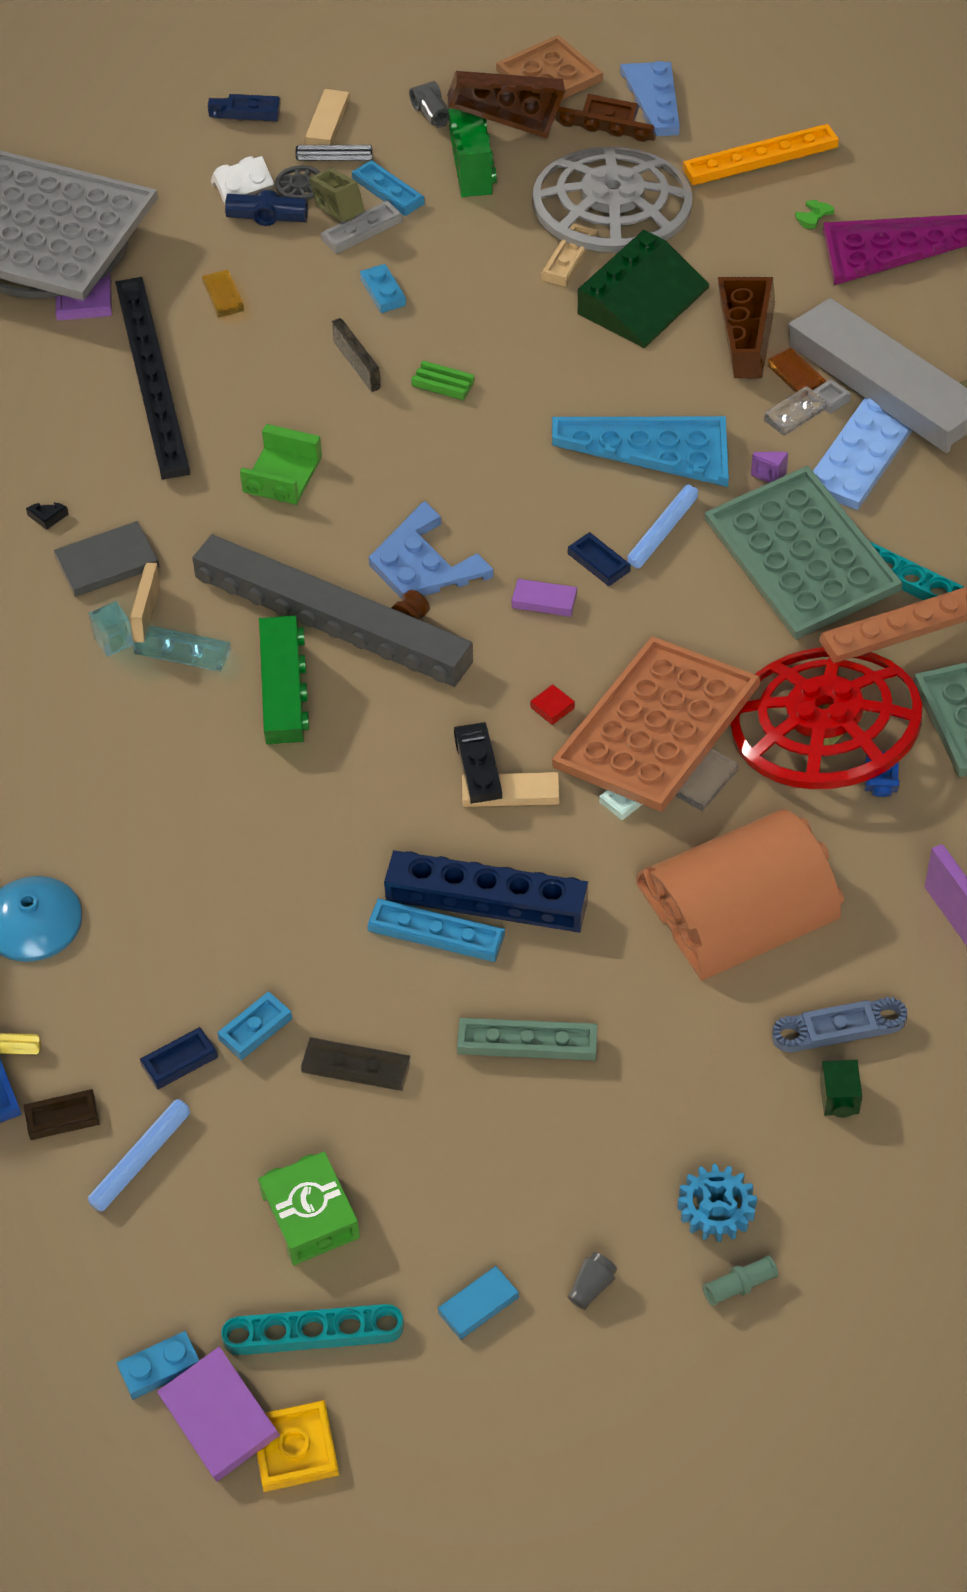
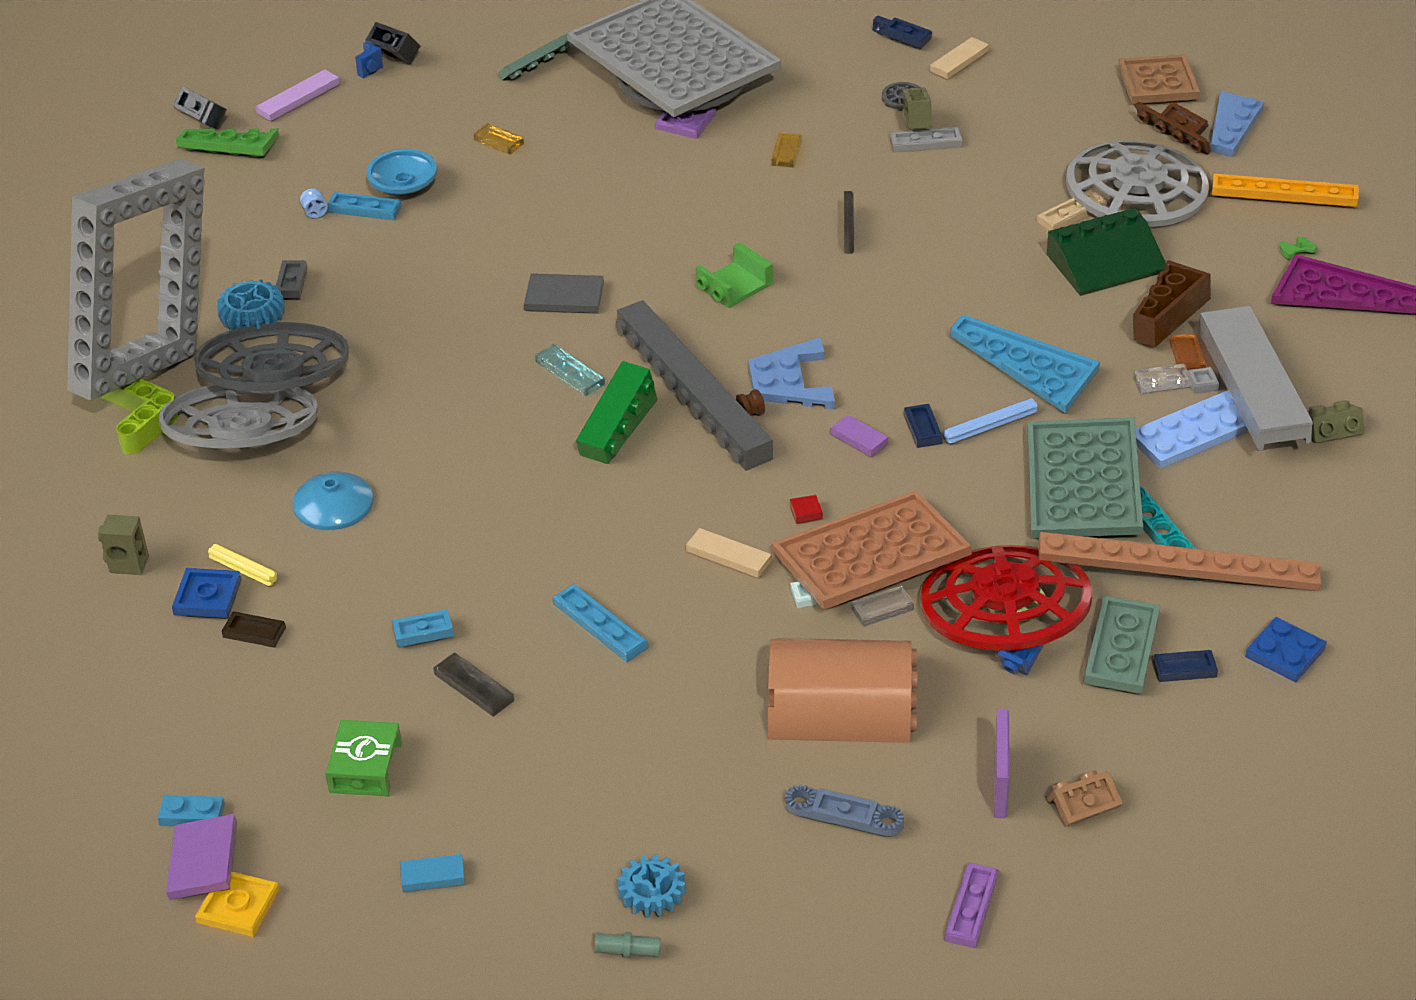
camera: 30 degrees right, 10 degrees down
(47, 514) = (546, 250): black tile -> none
(111, 628) = (527, 336): clear light blue brick -> none
(138, 1155) = (282, 676): light blue axle -> none
(144, 602) = (562, 328): tan tile -> none
(152, 379) = (688, 188): black plate -> none
(178, 1058) = (357, 628): dark blue tile -> none
(245, 178) = (859, 78): white bracket -> none
(266, 207) = (862, 102): dark blue piece -> none
(295, 1322) = (315, 846): teal beam -> none
(334, 152) = (945, 82): axle -> none
(383, 288) = (908, 186): dark azure plate -> none
(388, 187) = (967, 119): dark azure tile -> none
(429, 100) = (1045, 71): dark grey piece -> none
(445, 378) = (905, 261): bright green tile -> none
(471, 153) = (1047, 113): green wedge -> none
(471, 898) = (654, 610): dark blue brick -> none
(478, 762) = (715, 522): black plate -> none
(510, 100) = (1098, 83): reddish brown wedge -> none
(527, 1039) = (605, 719): sand green plate -> none
(594, 1276) = (520, 894): dark grey cone -> none
(769, 465) = (1108, 406): medium lavender slope -> none
(840, 1088) = (807, 851): dark green brick -> none

